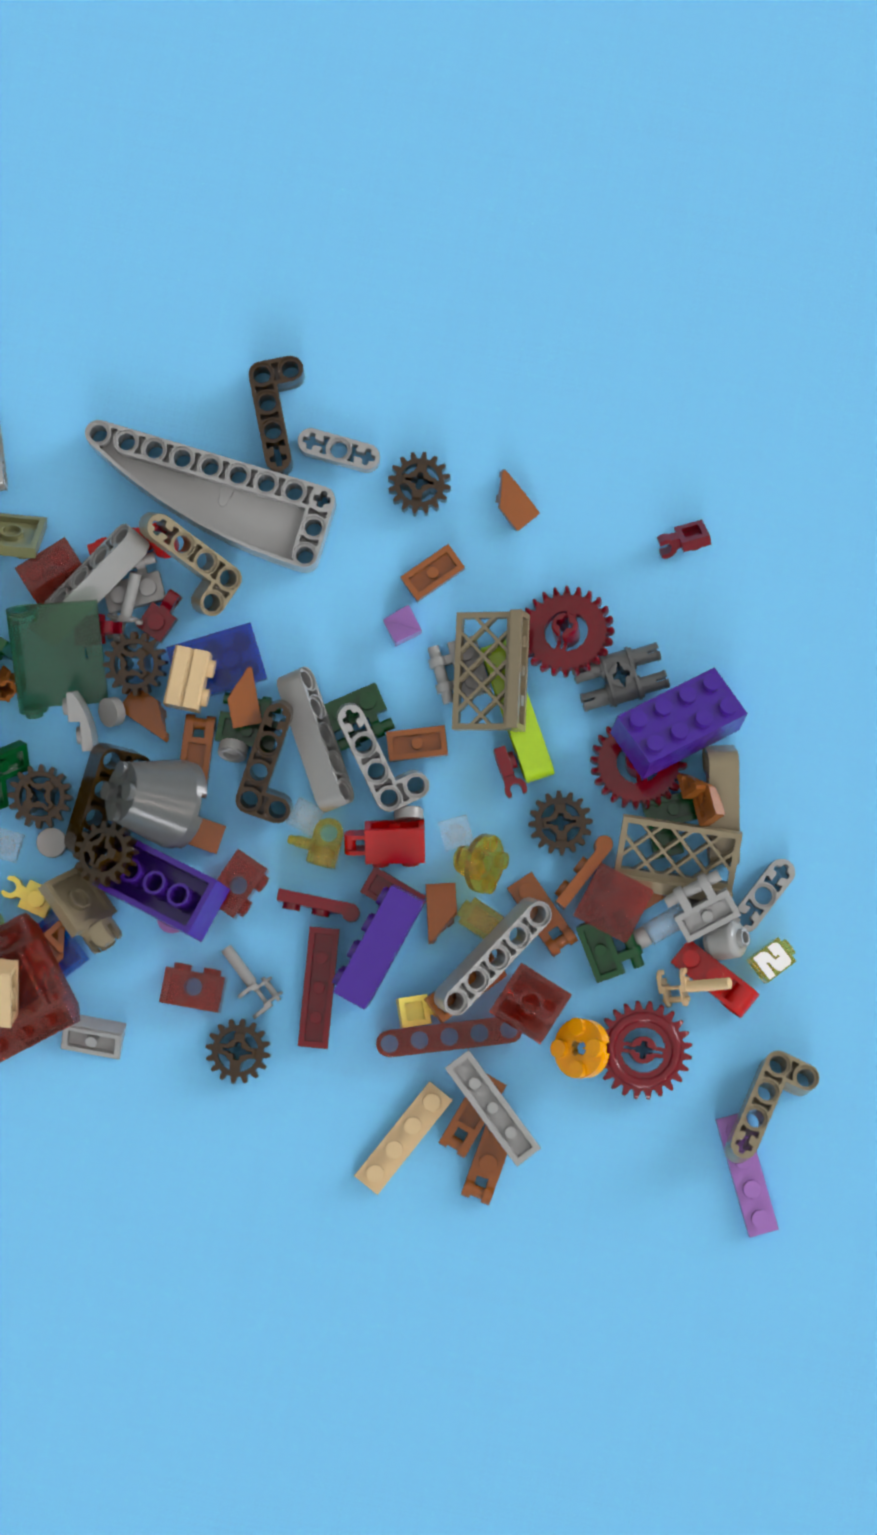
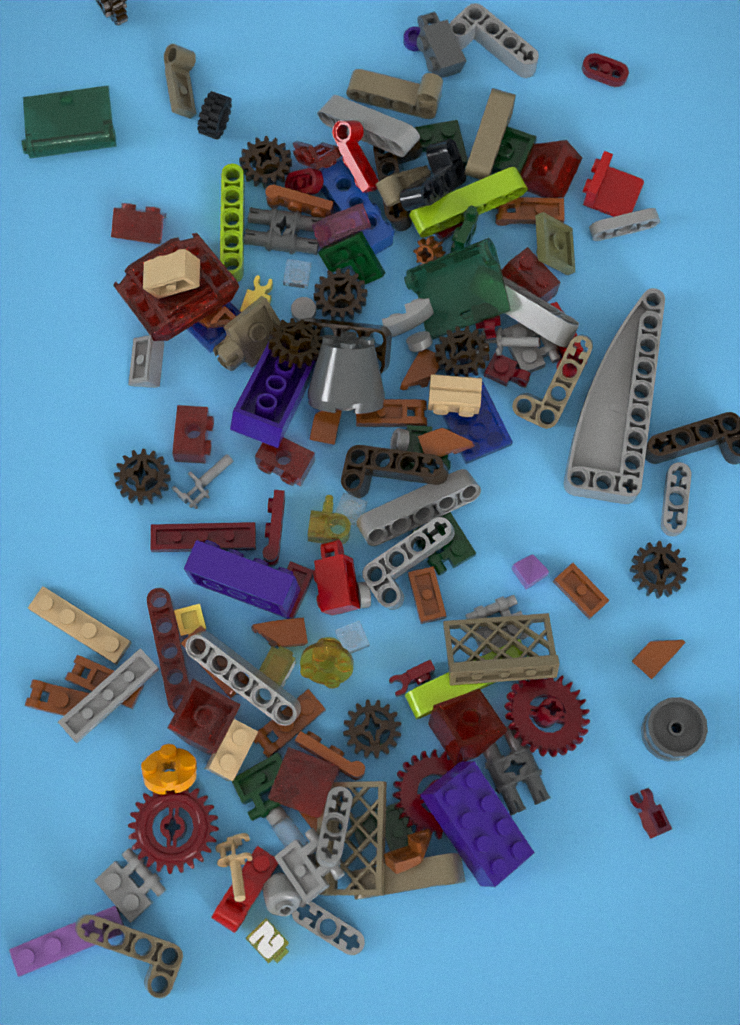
camera: 80 degrees right, 10 degrees down
(570, 977) = (231, 751): none -> tan brick
(571, 720) = (466, 726): none -> clear red slope
(607, 483) = (687, 720): none -> dark grey wheel
(648, 860) = (325, 833): none -> light grey beam
(701, 1109) = (124, 890): none -> light grey plate

